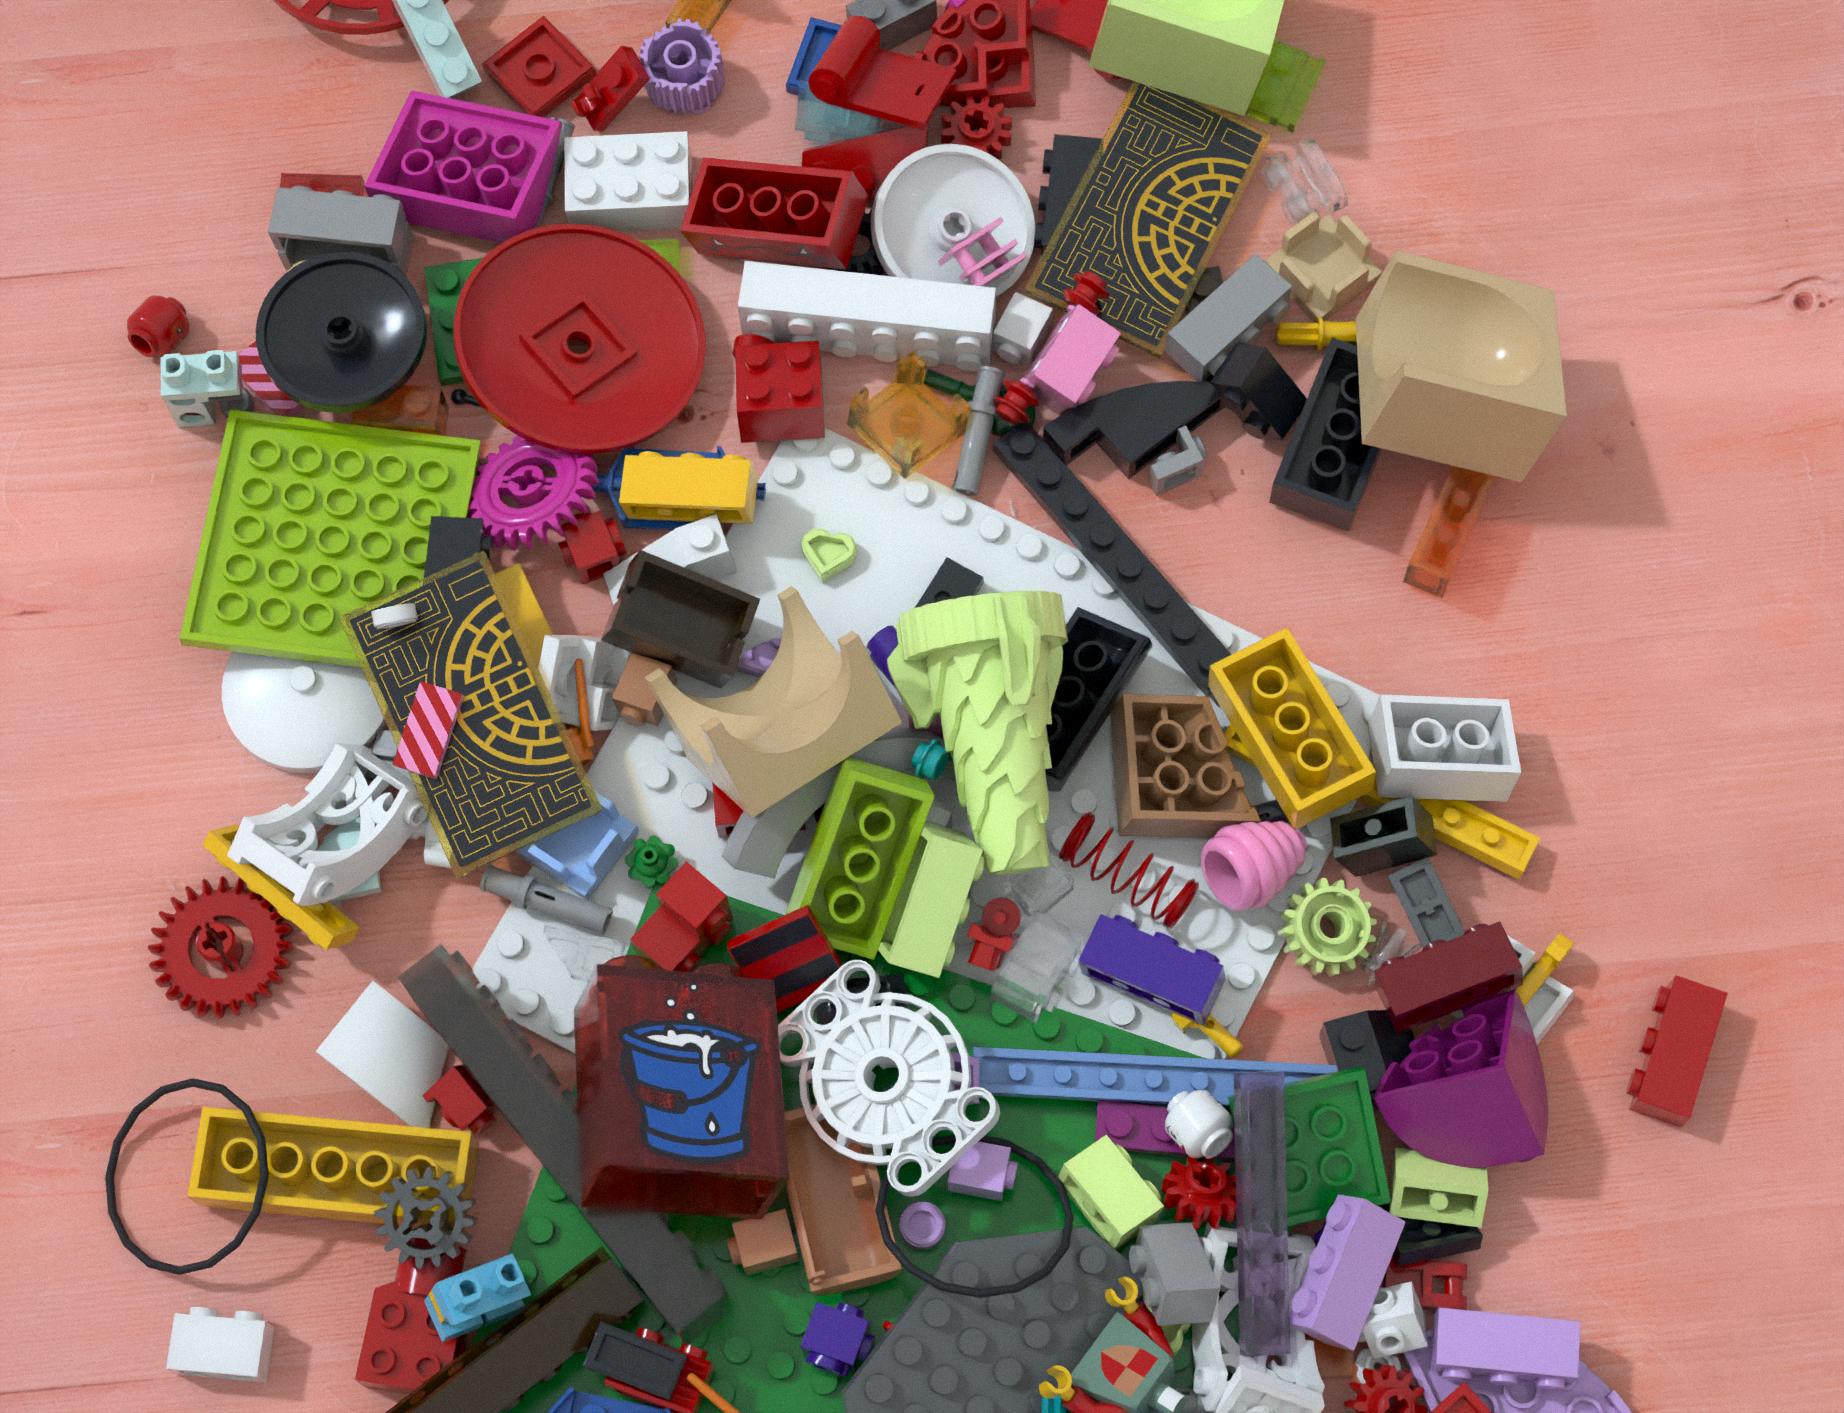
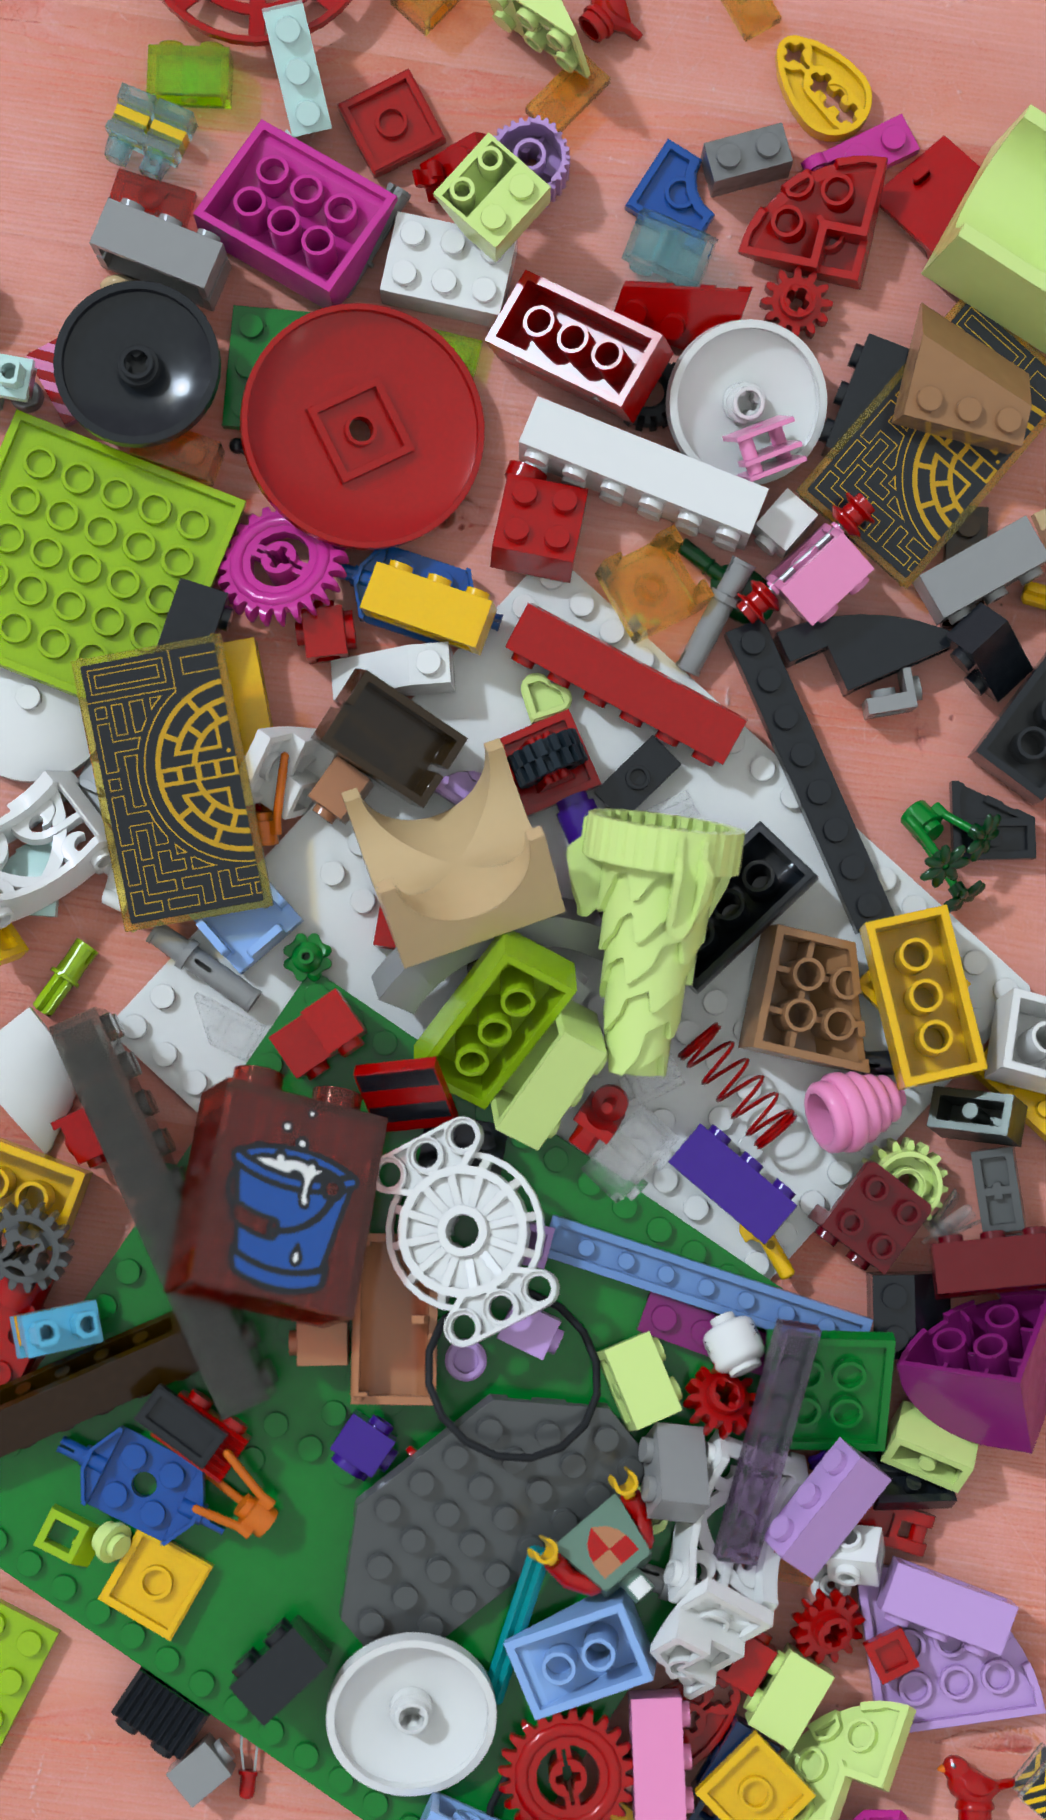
camera: 10 degrees right, 15 degrees up
(303, 130) = (148, 127): none -> clear light blue hips
(332, 74) = (191, 74): none -> clear neon green brick
(394, 616) = (121, 679): white tile -> none
(404, 948) = (65, 977): none -> lime axle
(428, 730) = (129, 792): tile -> none
(654, 94) = (493, 197): none -> yellowish green slope
(851, 600) = (549, 762): none -> plate
(878, 81) = (715, 234): red door -> none
(906, 513) = (625, 683): none -> red brick
(930, 760) = (582, 945): teal plate -> none
(1158, 159) = (962, 388): none -> medium nougat wedge
(1247, 575) = (926, 826): none -> plant
(1305, 967) = (872, 1218): none -> dark red bracket
(1310, 563) = (1016, 828): none -> black wing

